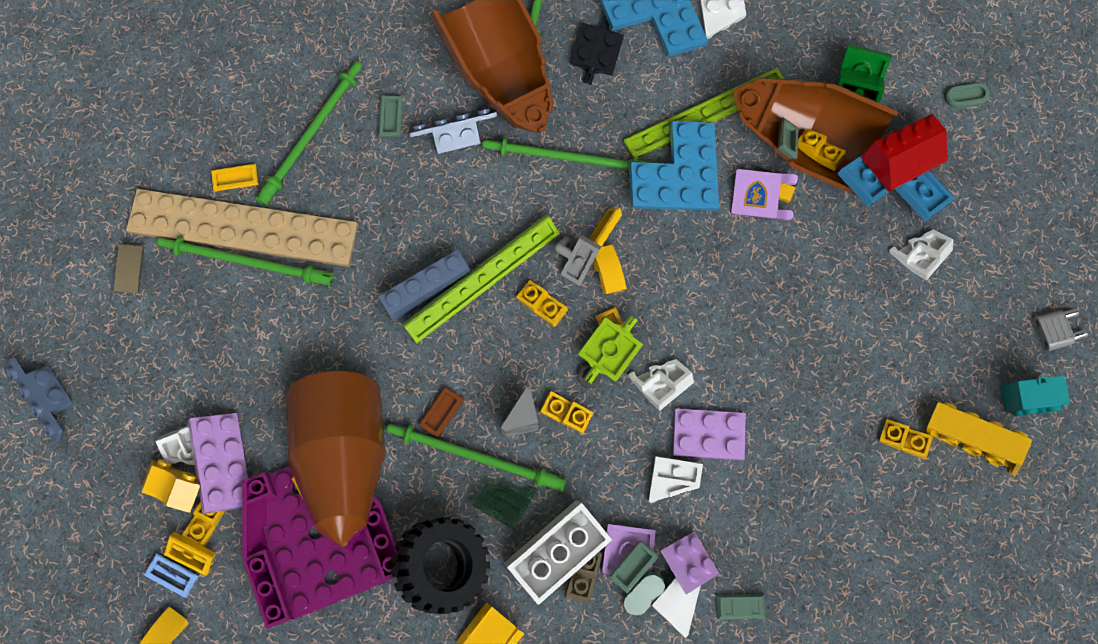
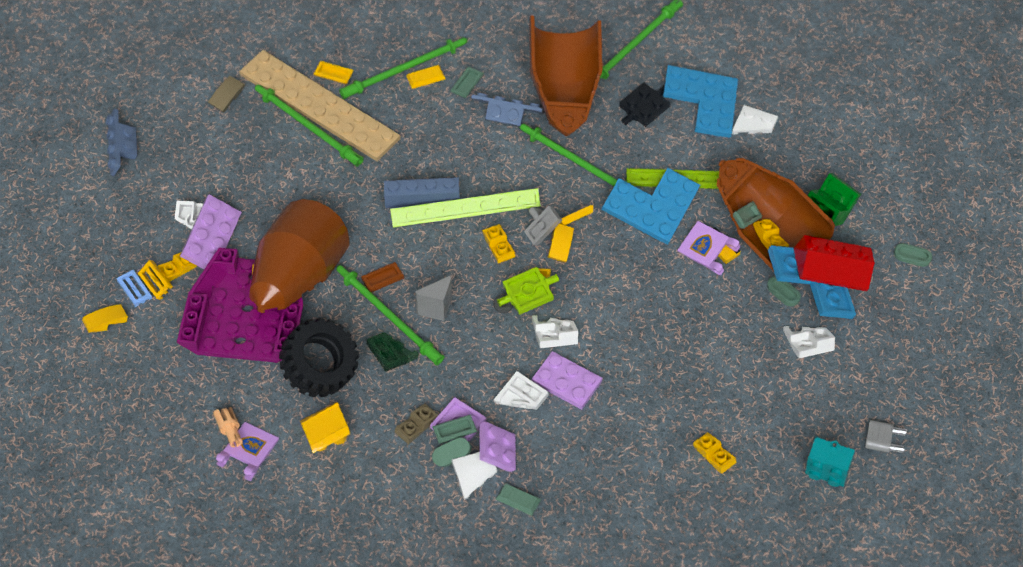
camera: 30 degrees right, 20 degrees down
(170, 485) = (169, 230): yellow brick -> none
(340, 131) = (425, 76): none -> yellow tile
(557, 551) = (406, 392): white slope -> none
(566, 412) = (470, 317): yellow slope -> none
(857, 207) = (784, 291): none -> sand green tile
(979, 437) = (770, 473): yellow wedge -> none

